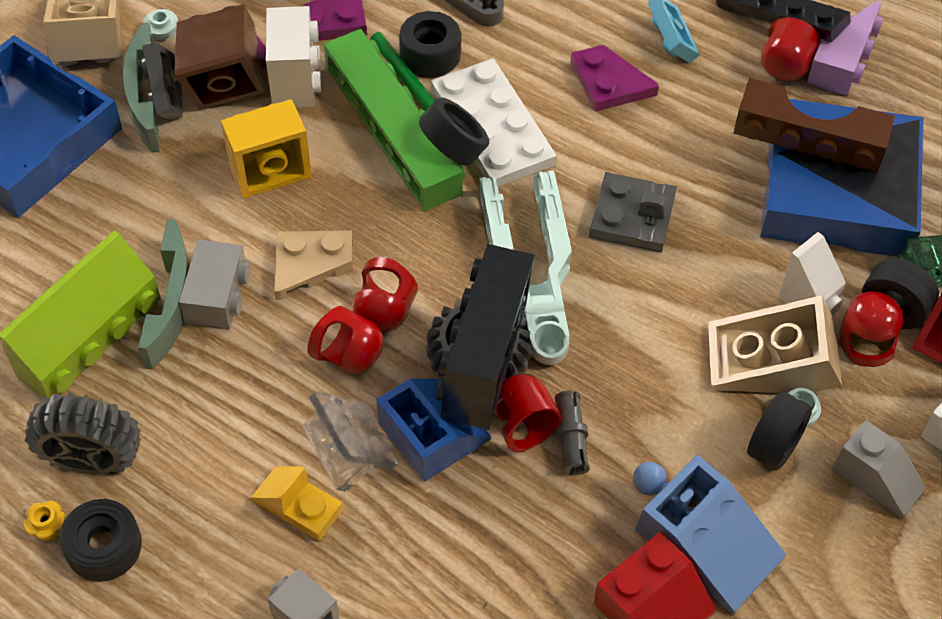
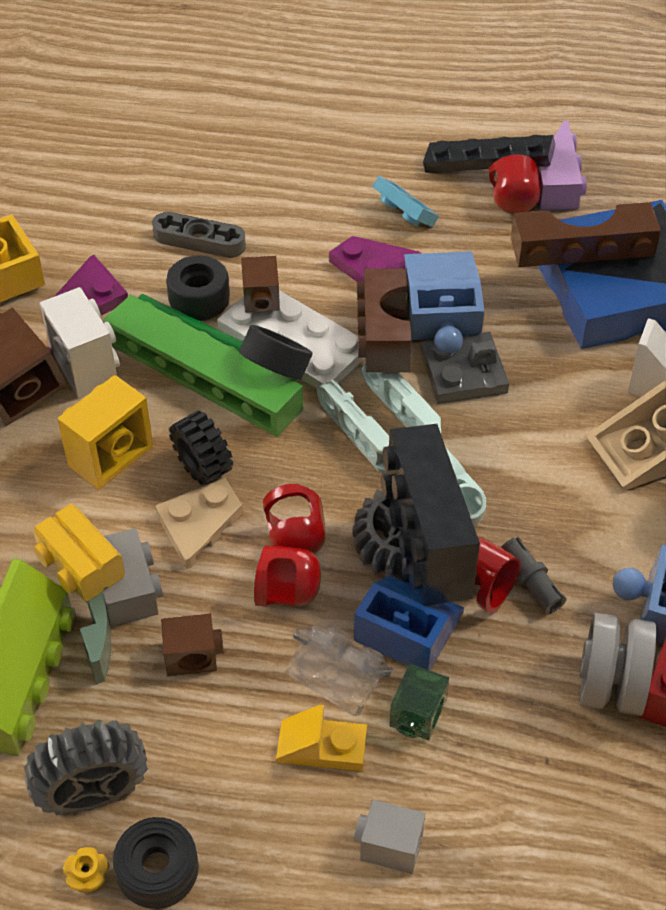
camera: 25 degrees left, 5 degrees down
(175, 248) = (78, 553): none -> yellow brick
(233, 367) = (190, 644): none -> reddish brown brick
(340, 194) = (201, 447): none -> black tyre
(396, 503) = (418, 702): none -> clear green brick
(480, 61) = (260, 284): none -> reddish brown brick
(560, 156) = (381, 336): none -> reddish brown arch
(586, 544) = (623, 664): none -> light grey wheel
(648, 136) = (444, 298): none -> medium blue slope

